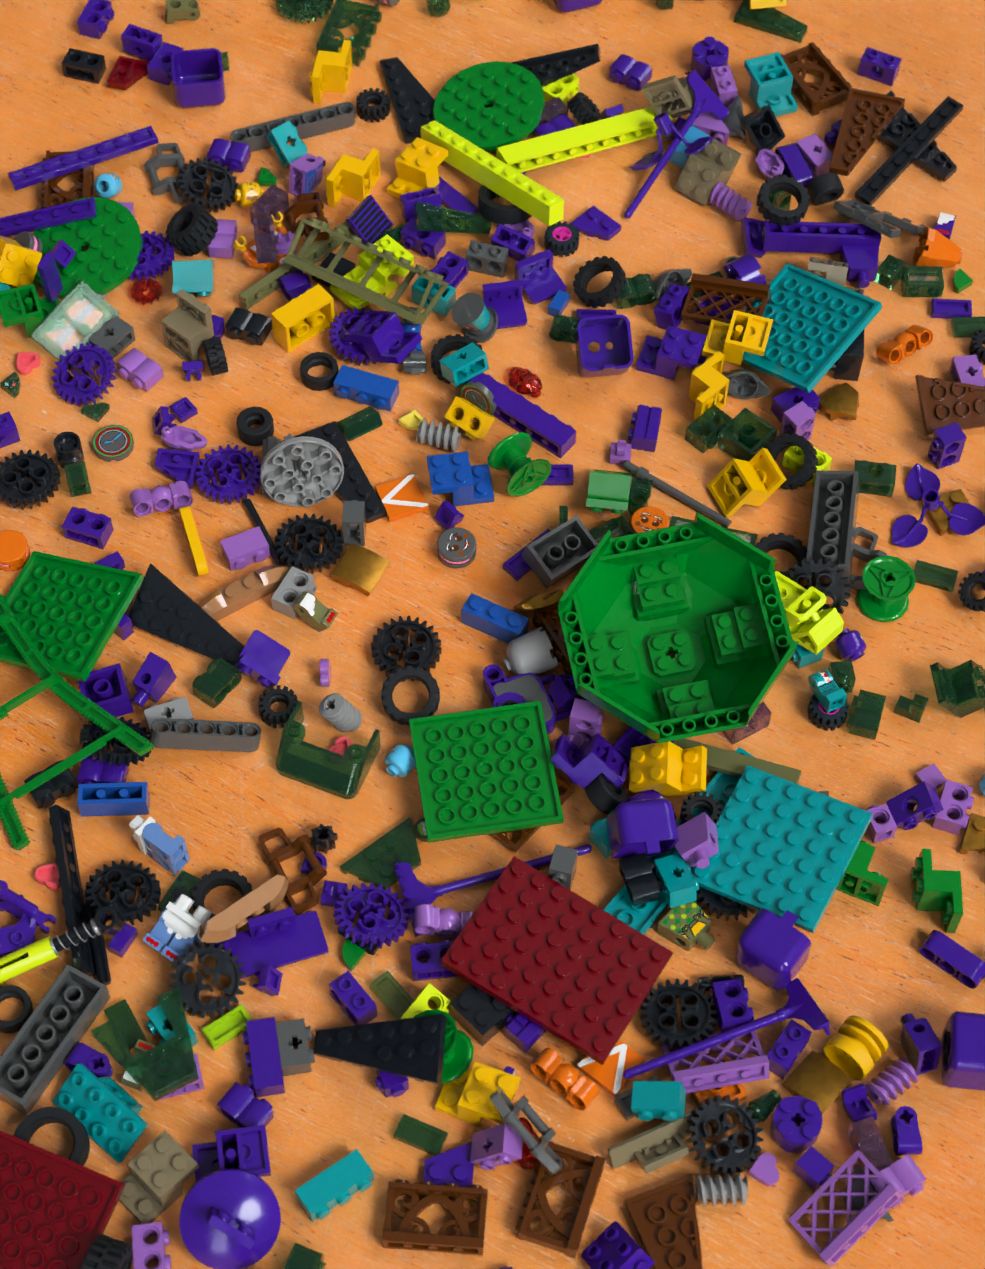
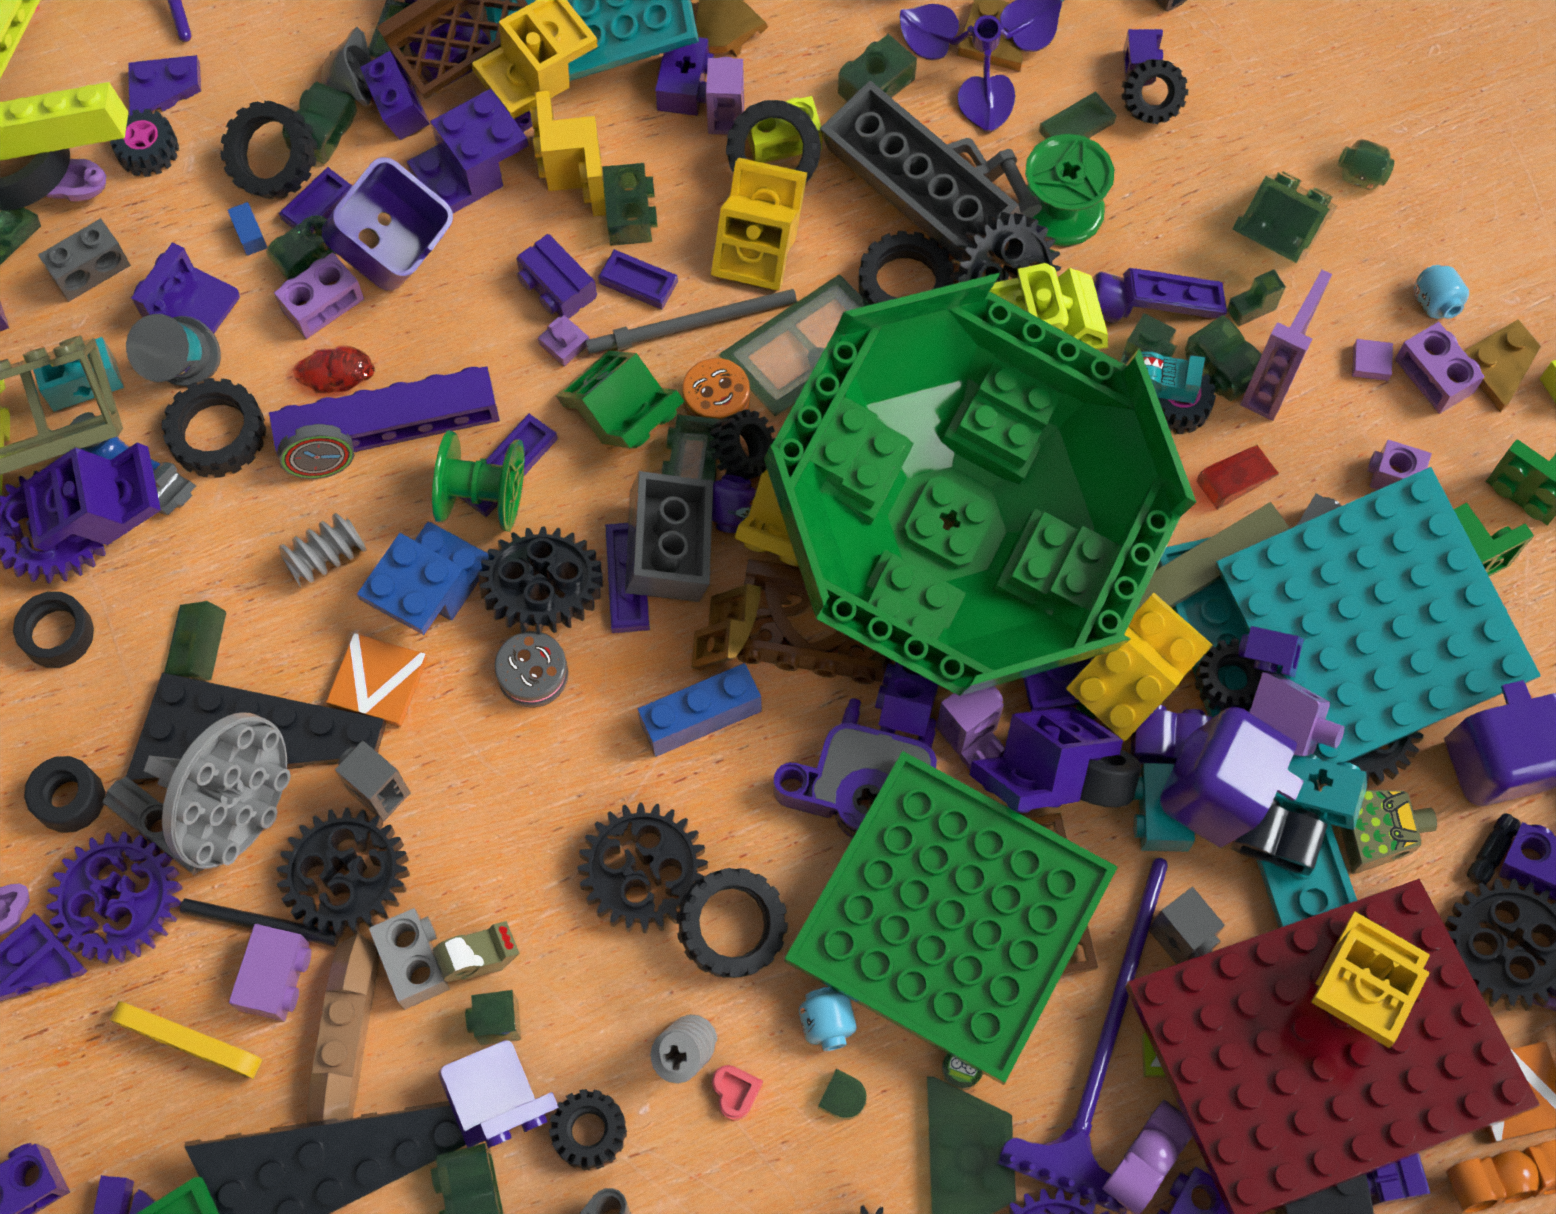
camera: 50 degrees left, 10 degrees up
(160, 498) = (65, 1035): medium lavender piece -> none
(295, 639) = (494, 1017): none -> clear green brick
(321, 767) = (745, 1151): clear green windscreen -> none
(325, 672) = (588, 1016): medium lavender tile -> none
(360, 569) = (449, 830): pearl gold slope -> none
(366, 388) = (146, 587): blue brick -> none
(373, 792) = (843, 1097): none -> clear green tile
(411, 420) = (260, 566): light yellow tile -> none
(448, 515) = (468, 640): dark purple tile -> none
(452, 268) = (62, 326): dark purple brick -> none
(464, 364) = (243, 424): teal brick -> none
(471, 414) = (329, 477): yellow brick -> none
(484, 518) = (540, 580): none -> black gear
(519, 245) = (89, 203): dark purple brick -> none
(530, 653) = (801, 704): light grey cylinder -> none
(539, 277) = (182, 217): dark purple bracket -> none
(552, 350) = (324, 300): none -> medium lavender brick
(563, 514) = (610, 494): clear green tile -> none
(595, 942) = (1371, 979): none -> yellow bracket
(639, 494) = (660, 362): clear green piece -> none
(677, 460) = (638, 279): none -> dark purple tile
(721, 811) = (1272, 650): none -> dark purple brick
(745, 435) = (687, 169): clear green brick -> none
(746, 384) = (603, 100): dark grey hat -> none
(811, 758) = (1236, 476): none -> clear red slope
(868, 723) = (1283, 357): none -> medium lavender fence
(878, 670) = (1174, 293): none -> dark purple tile
(902, 806) = (1417, 386): dark purple brick -> none

